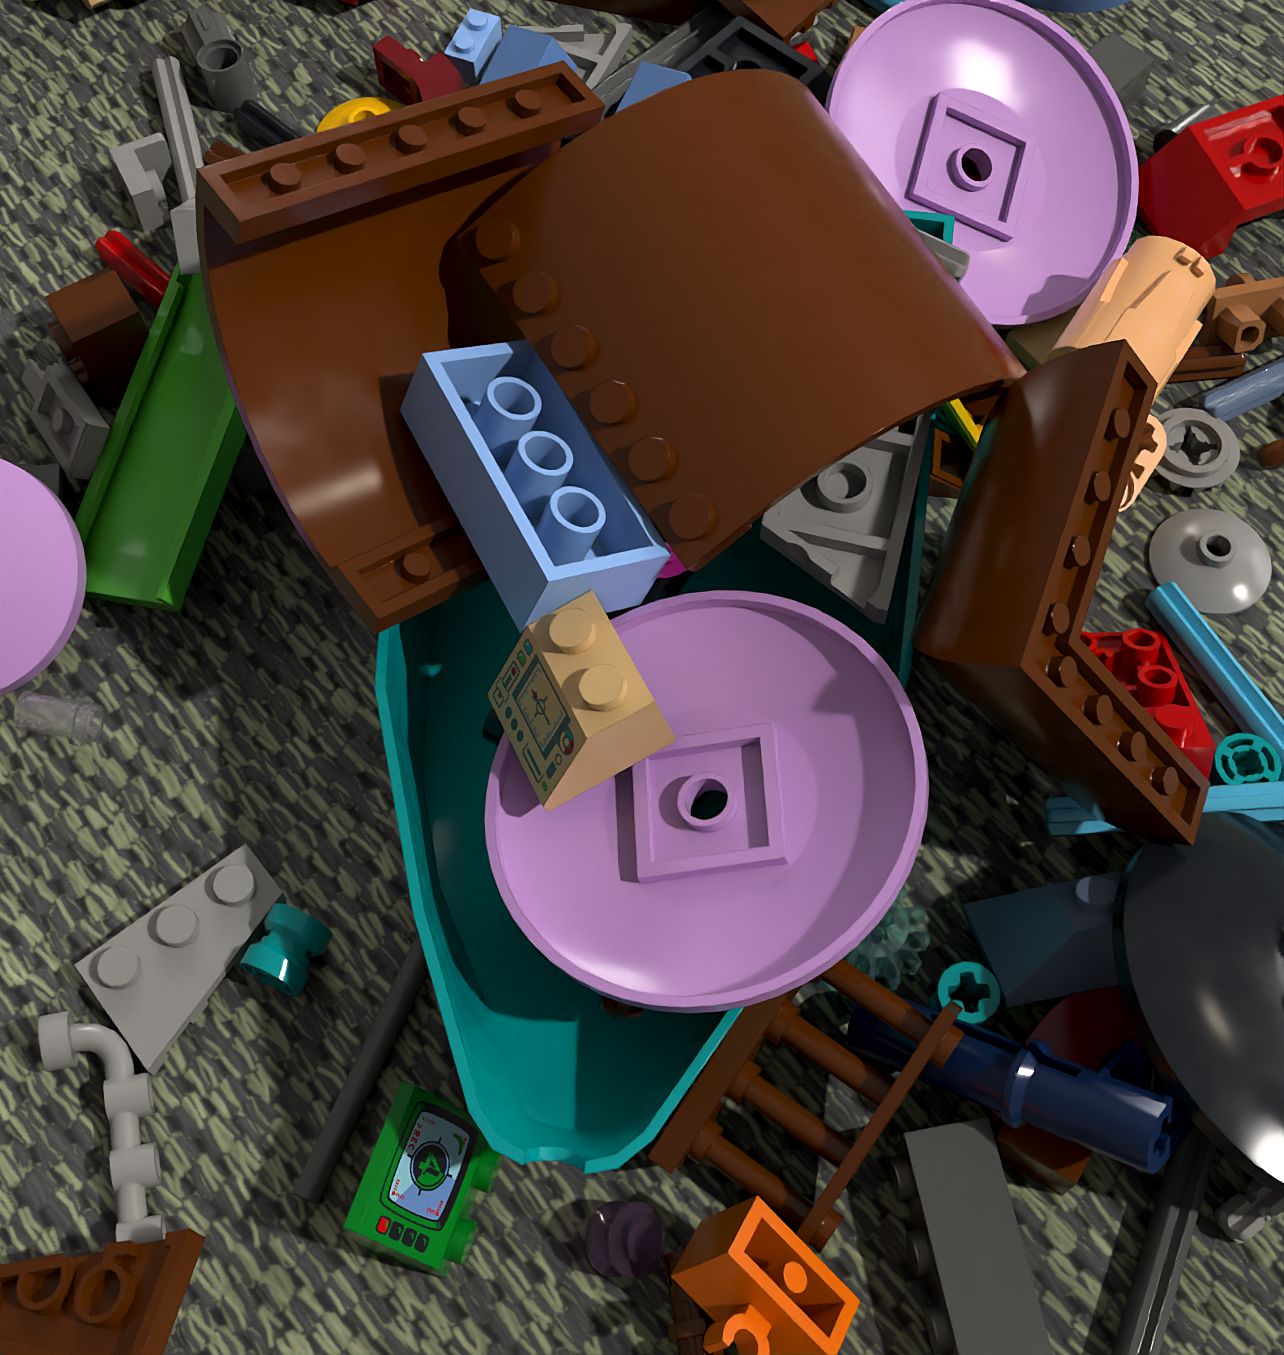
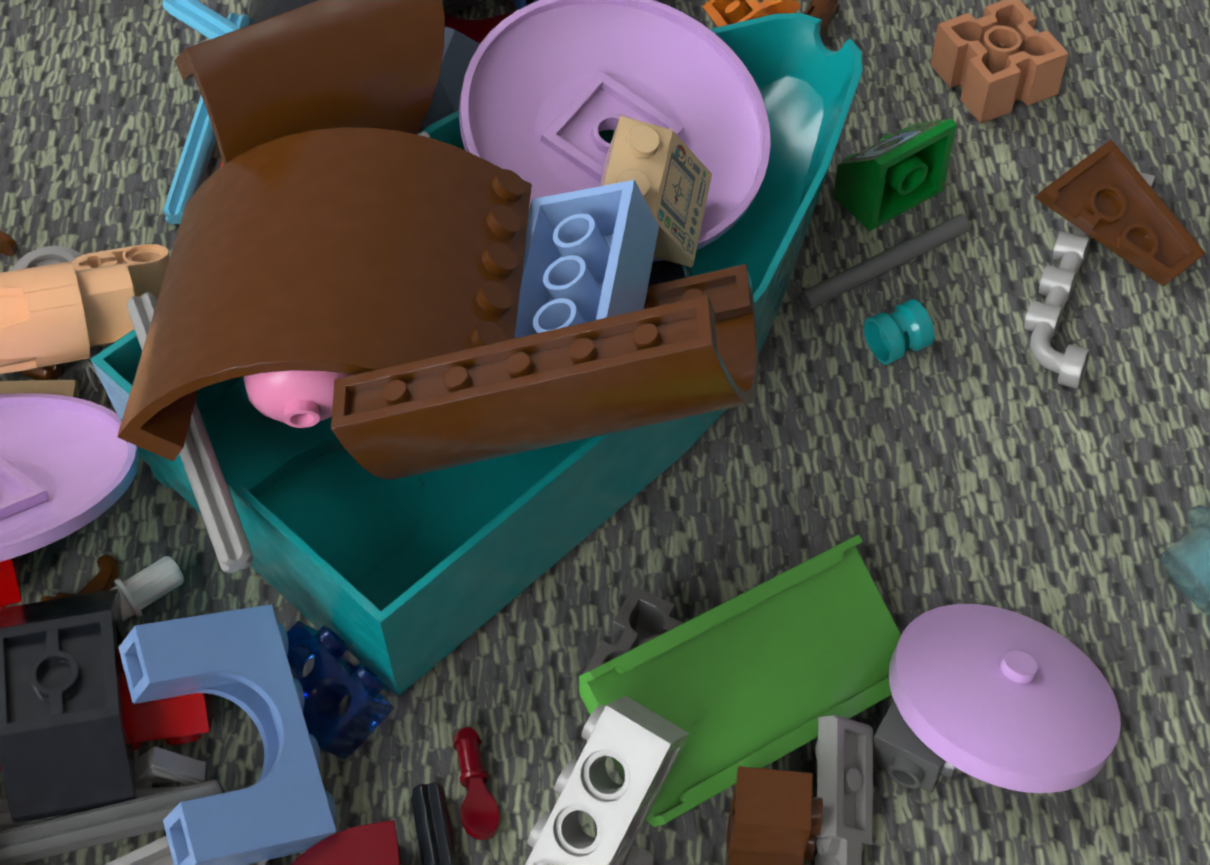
camera: 145 degrees left, 10 degrees down
(74, 719) = (973, 569): clear pin -> none
(175, 956) = (966, 380): light grey wing -> none
(1209, 581) = (119, 219): light grey dish -> none

